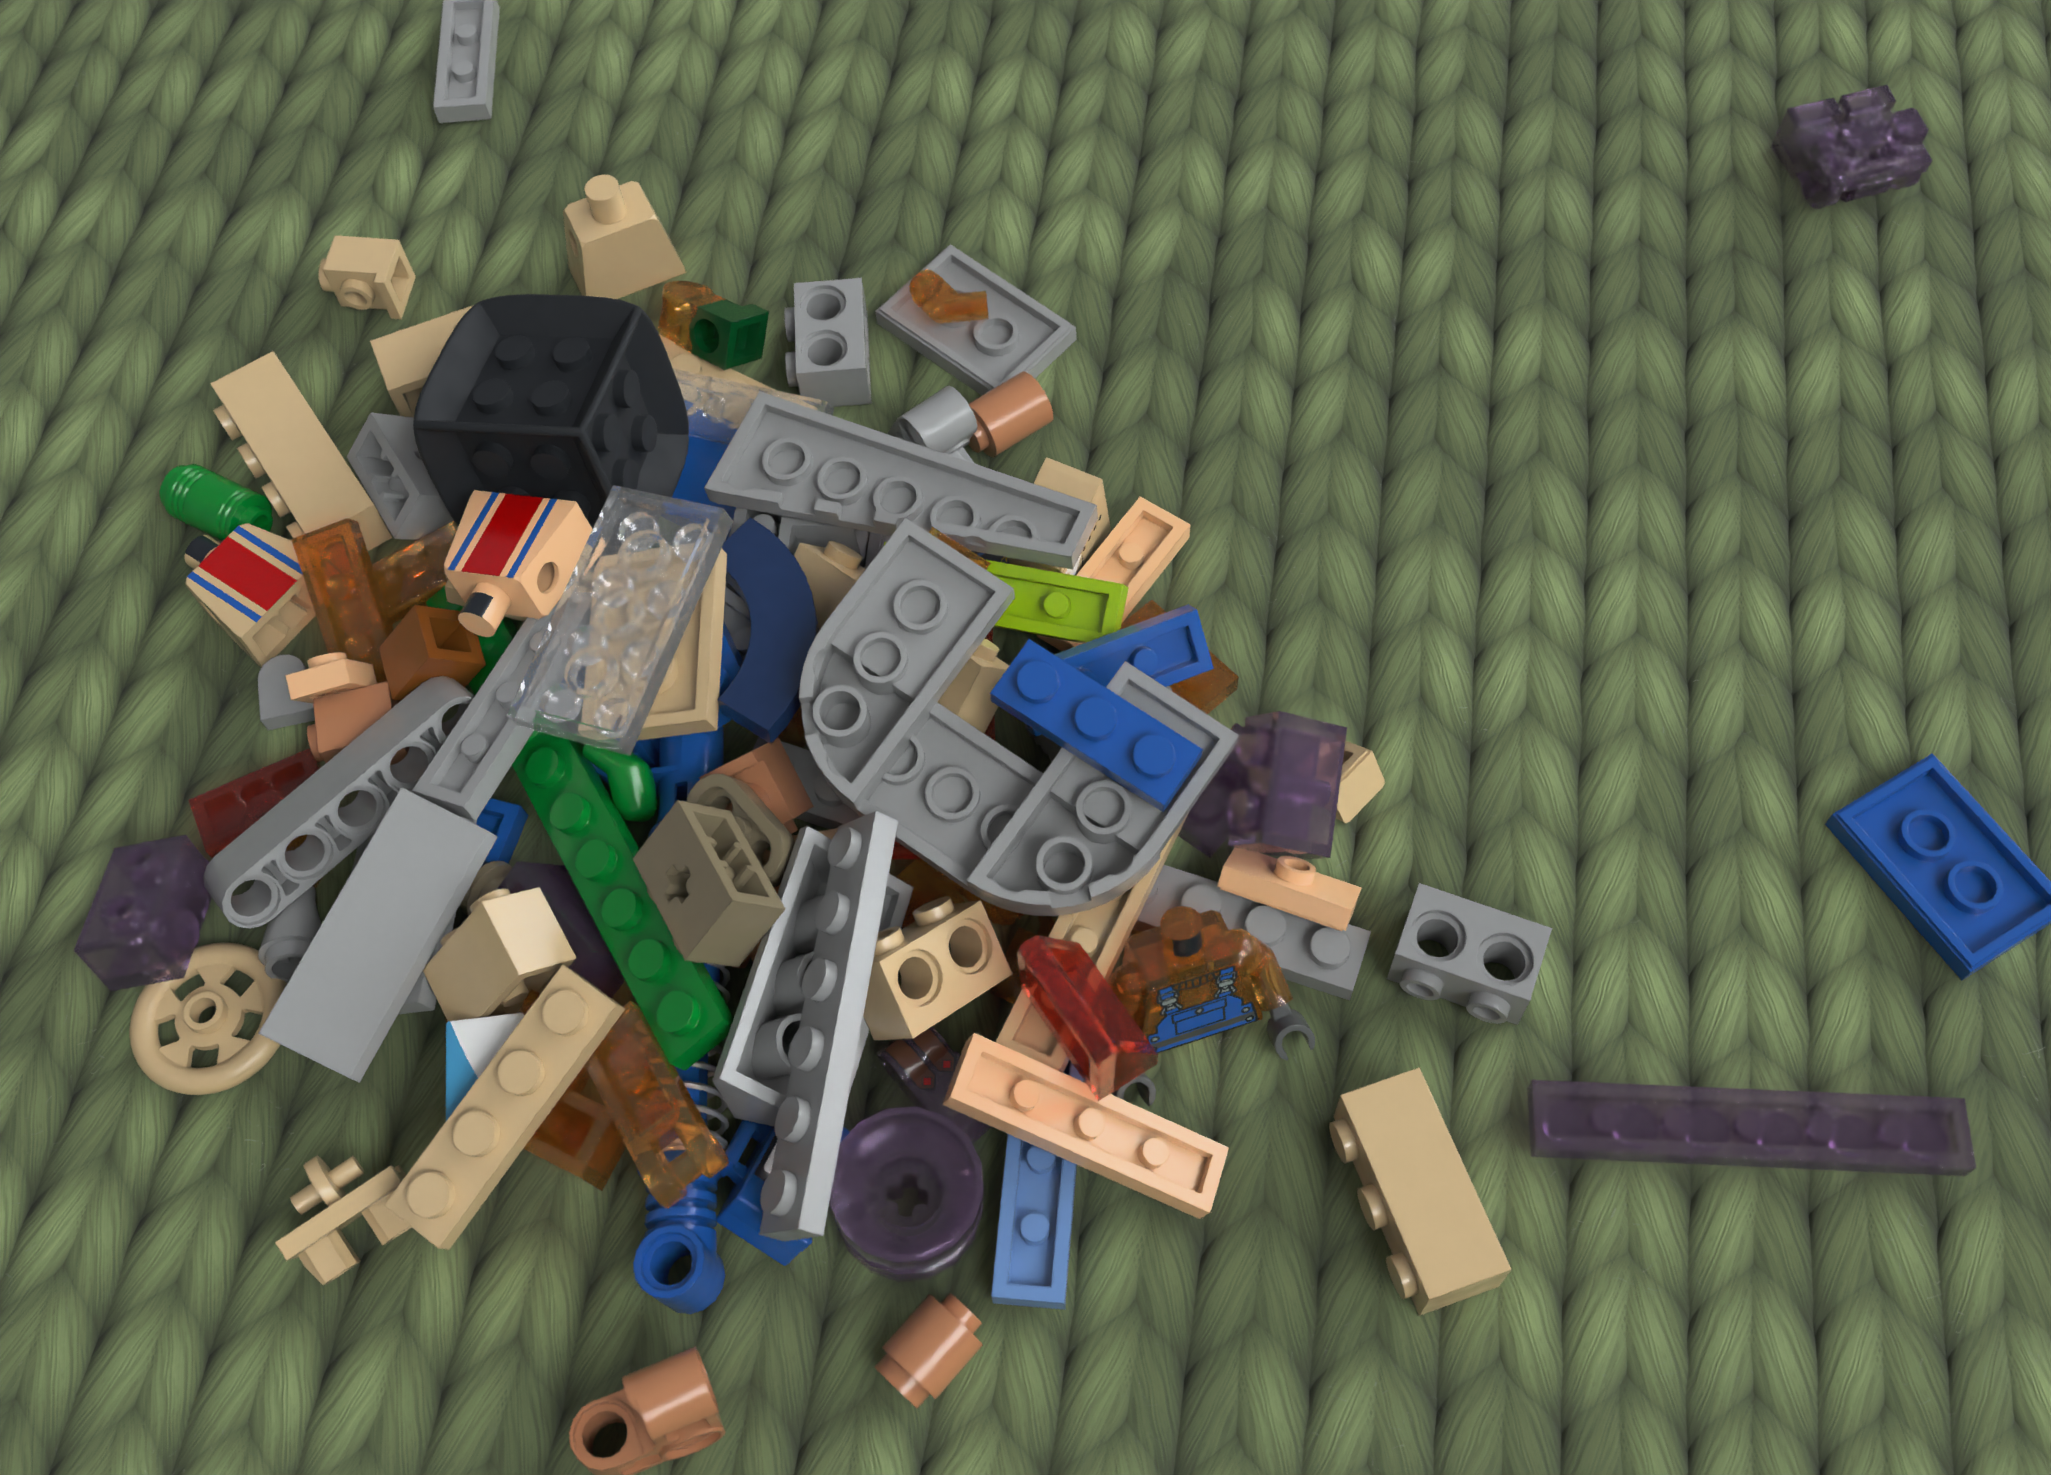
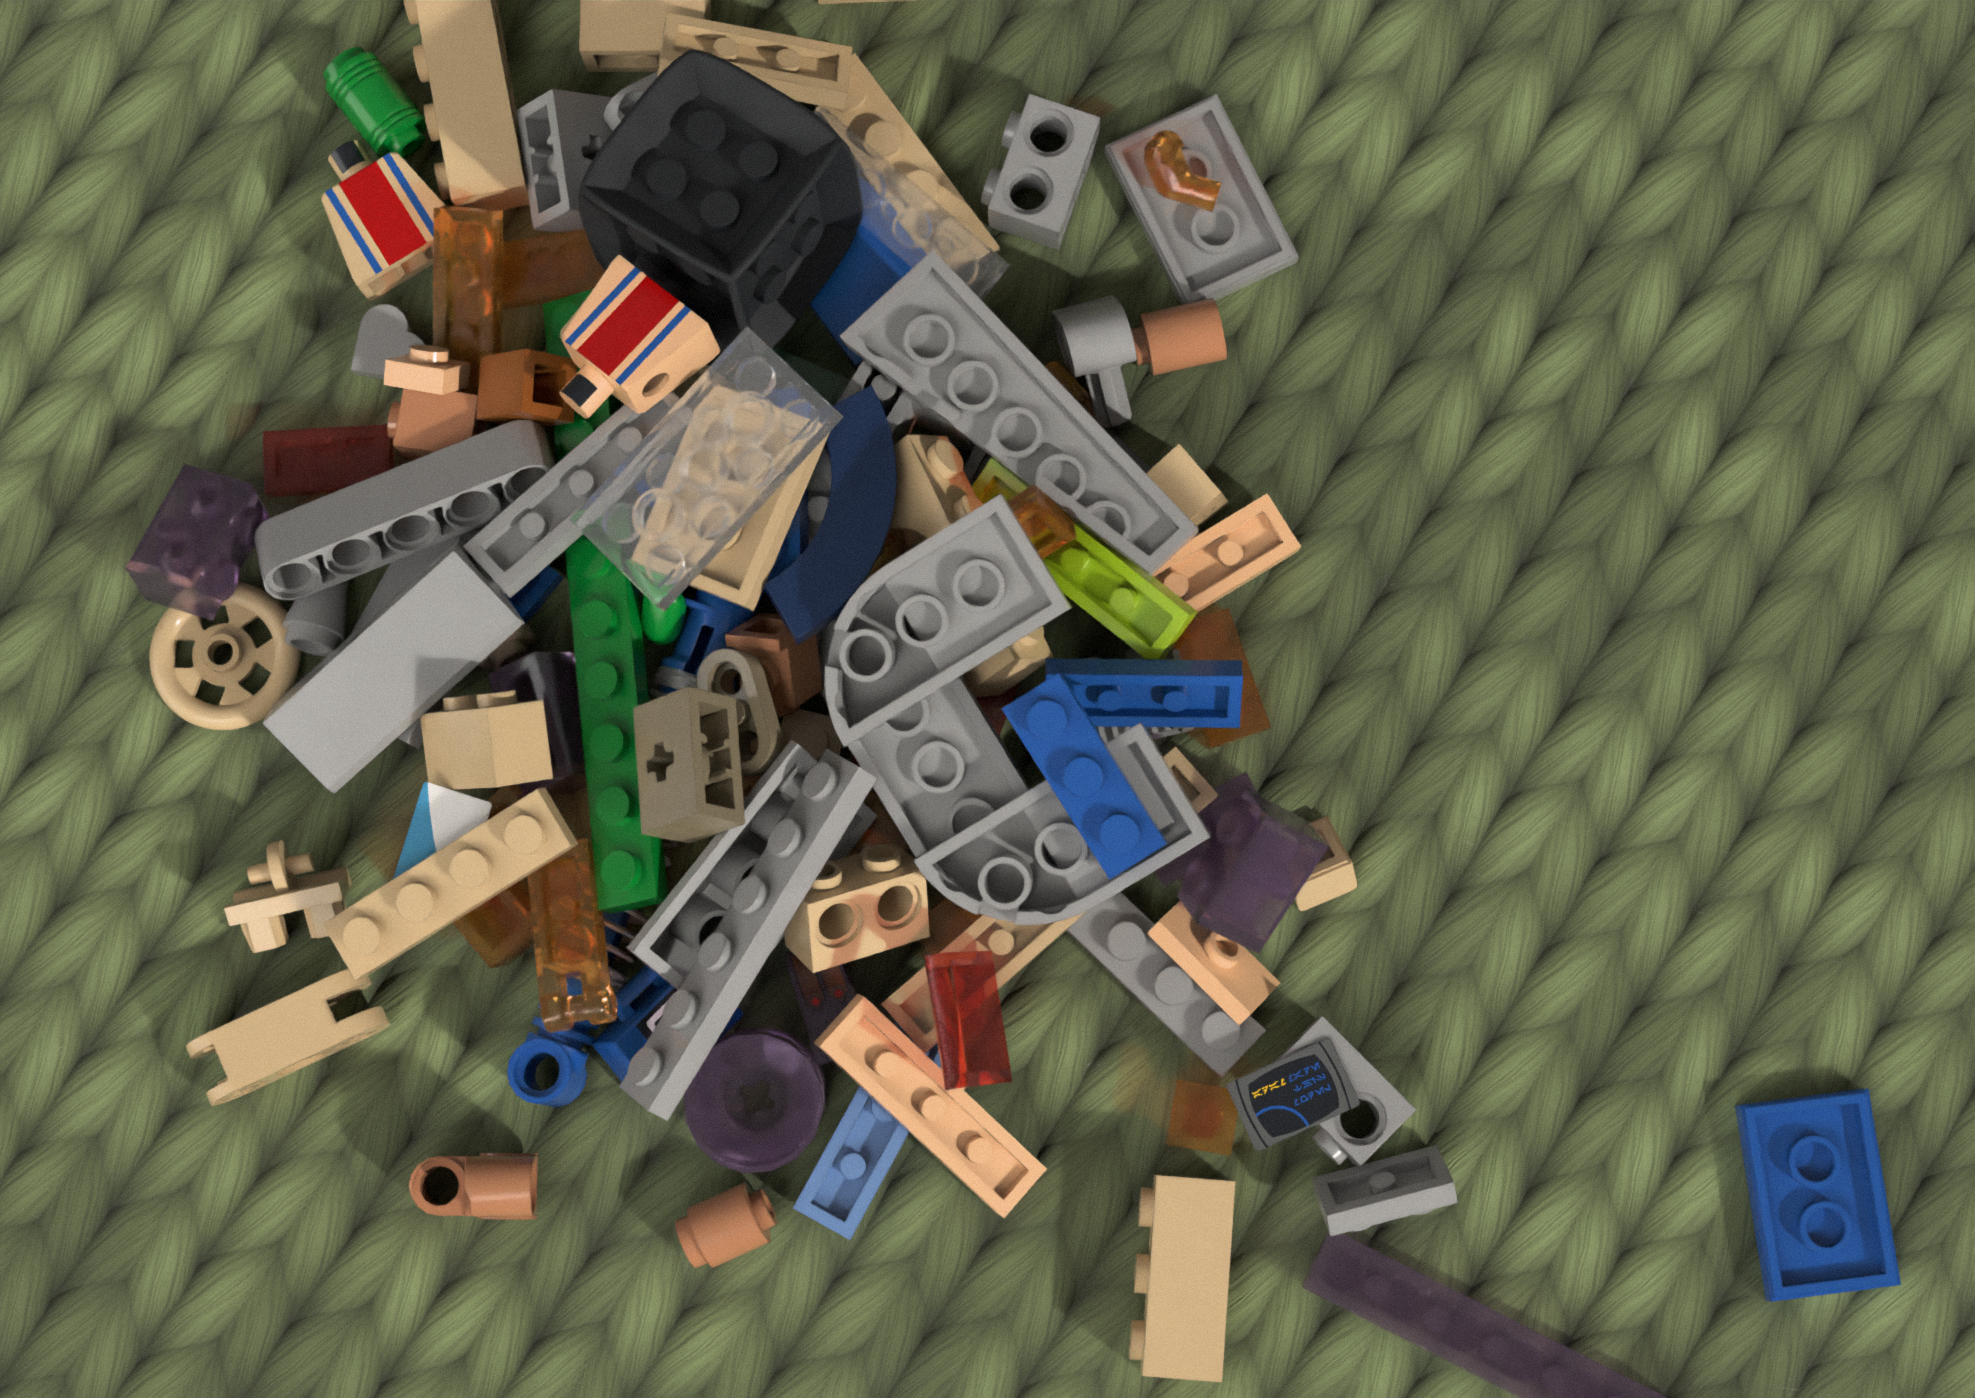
camera: 25 degrees right, 20 degrees up
(387, 1354) = (286, 1036): none -> tan piece
(712, 325) = (928, 97): dark green leg -> none
(1200, 981) = (1087, 1018): clear orange torso -> none
(1354, 1035) = (1202, 1118): none -> clear orange plate
(1430, 963) = (1293, 1094): none -> sticker
(1561, 1025) = (1384, 1190): none -> light grey plate

